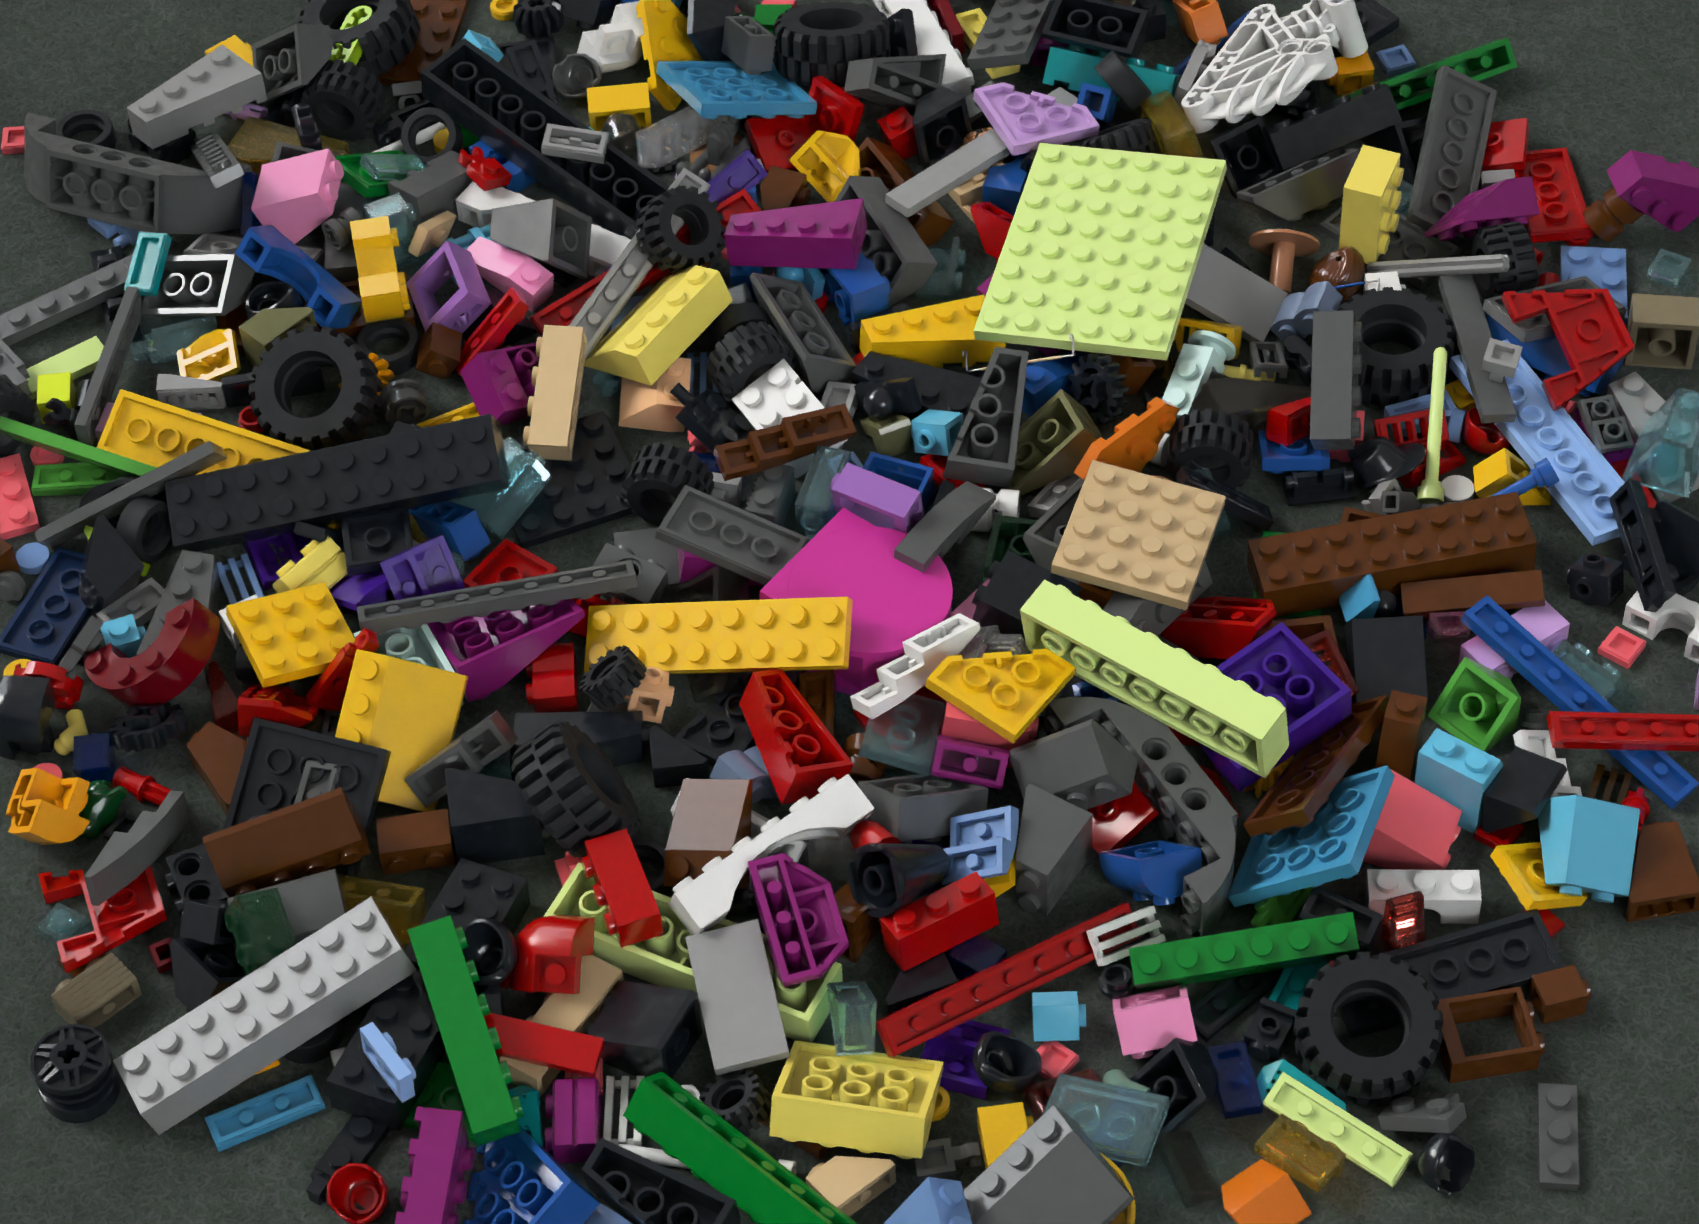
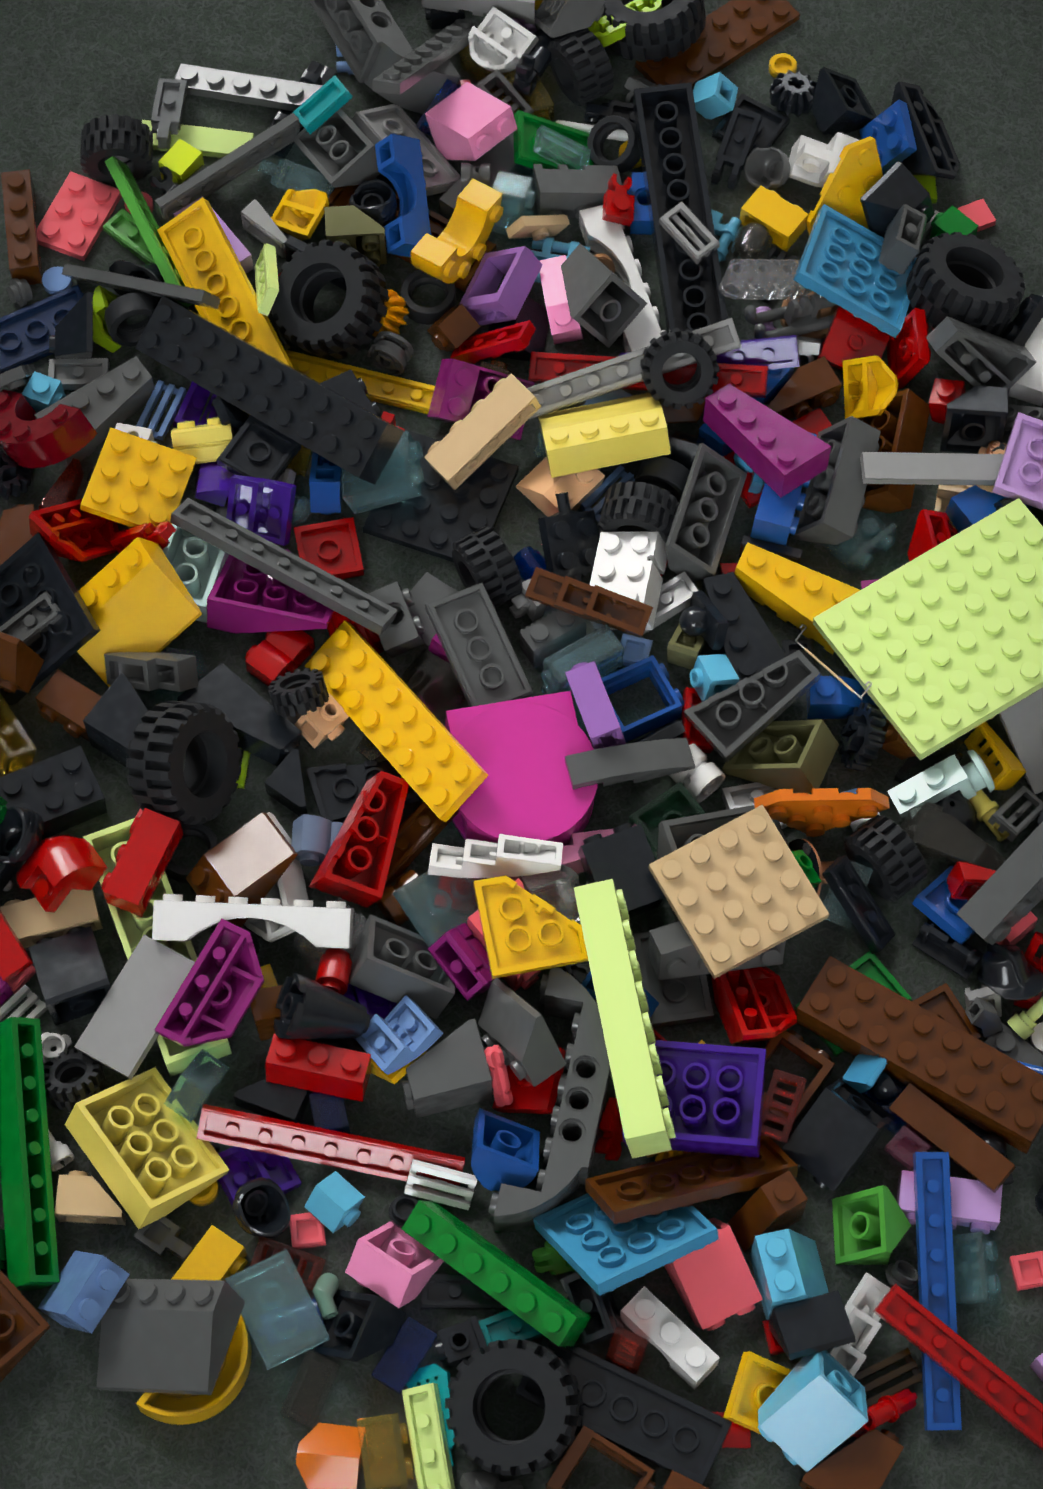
camera: 40 degrees right, 15 degrees up
(245, 412) = (266, 279): none -> yellowish green tile
(255, 124) = (500, 42): none -> white slope
(1103, 833) = (499, 1076): none -> coral axle

